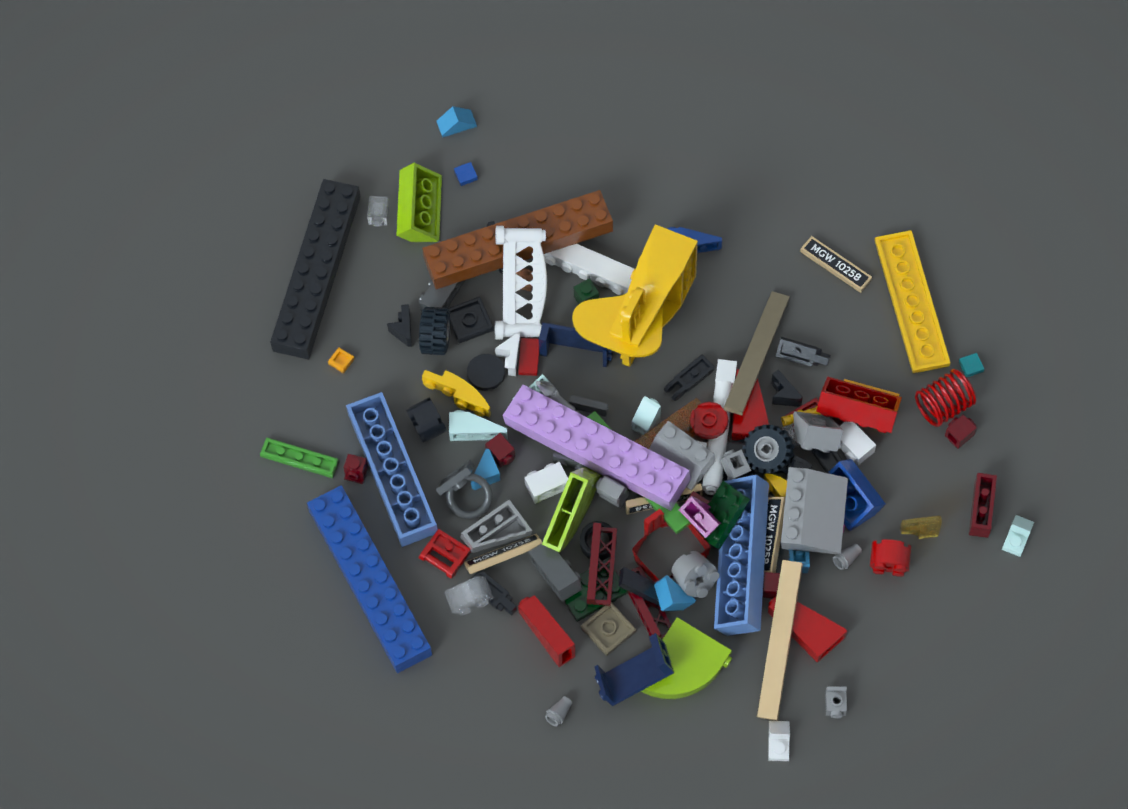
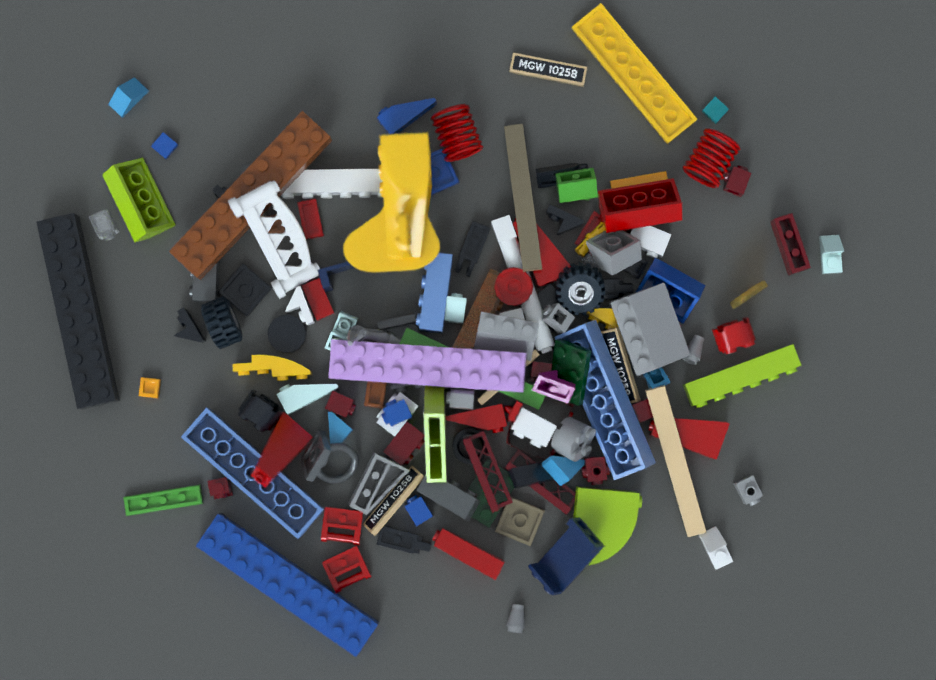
camera: 30 degrees left, 20 degrees up
(427, 457) = (280, 449): none -> red slope
(428, 586) = (343, 563): none -> red plate
(469, 595) = (385, 557): clear brick -> none
(521, 573) = (418, 510): none -> blue brick
(537, 456) = (375, 394): none -> dark orange tile
(538, 509) = (404, 444): none -> dark red brick
(547, 474) = (396, 412): none -> blue brick
(559, 289) = (310, 219): none -> red tile
(585, 291) = (339, 214): dark green brick -> none
(628, 523) = (484, 418): none -> red slope
(645, 381) = (436, 290): none -> medium blue brick
(662, 544) = (533, 427): none -> white brick
(695, 304) = (442, 172): none -> blue tile
(701, 613) = (590, 464): none -> dark red brick
(730, 264) = (451, 133): none -> red piece
(810, 366) = (576, 185): none -> bright green brick
(881, 598) = (742, 375): none -> lime brick

